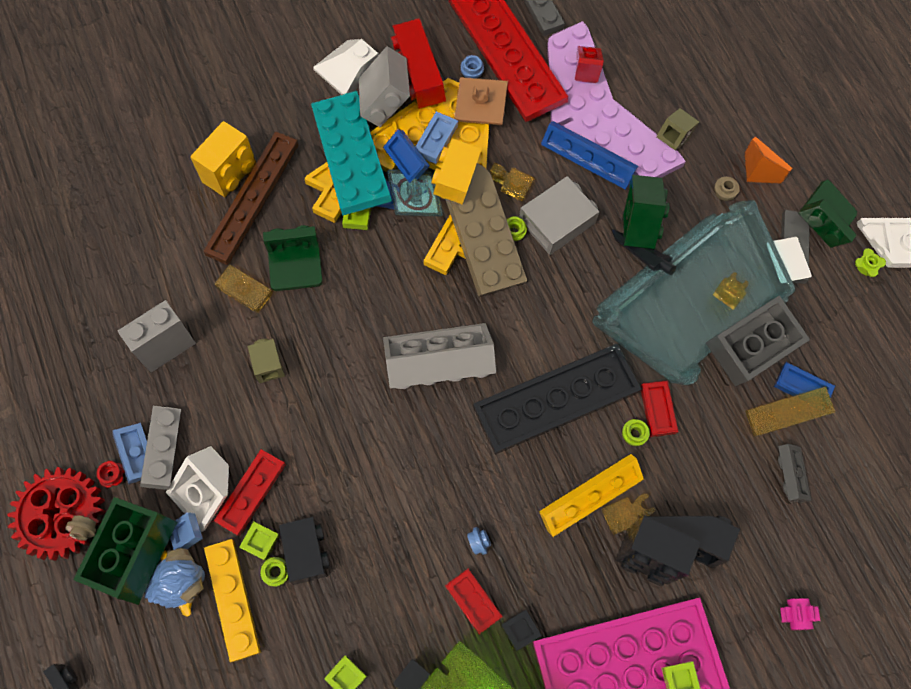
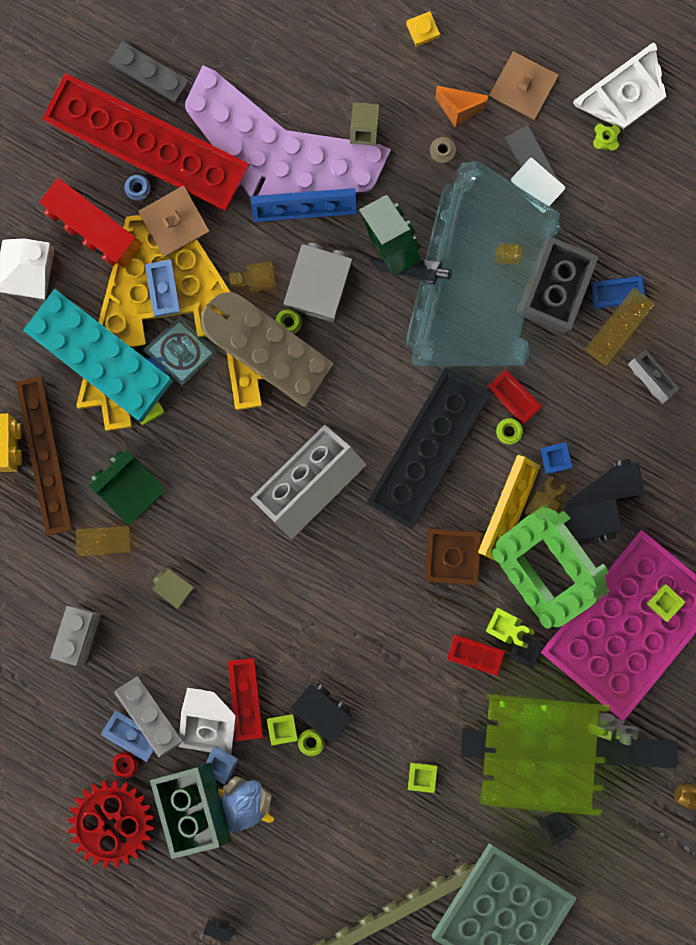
camera: 30 degrees left, 15 degrees up
(81, 528) = (144, 819): dark tan plate -> none
(232, 600) = (295, 785): yellow plate -> none
(383, 87) = (82, 274): light grey brick -> none
(406, 156) = (151, 326): blue tile -> none
(456, 172) = (212, 319): yellow brick -> none
(479, 541) = (448, 607): medium blue plate -> none
(513, 501) = (452, 556): none -> reddish brown plate
(519, 597) = (508, 628): none -> lime plate
(588, 64) = (241, 113): red slope -> none
(627, 597) = (589, 581): none -> bright green plate
(661, 482) = (556, 458): none -> blue plate
(768, 100) = (423, 29): none -> yellow plate
(810, 178) = (523, 85): none -> medium nougat piece
(830, 215) = (545, 116): dark green bracket -> none

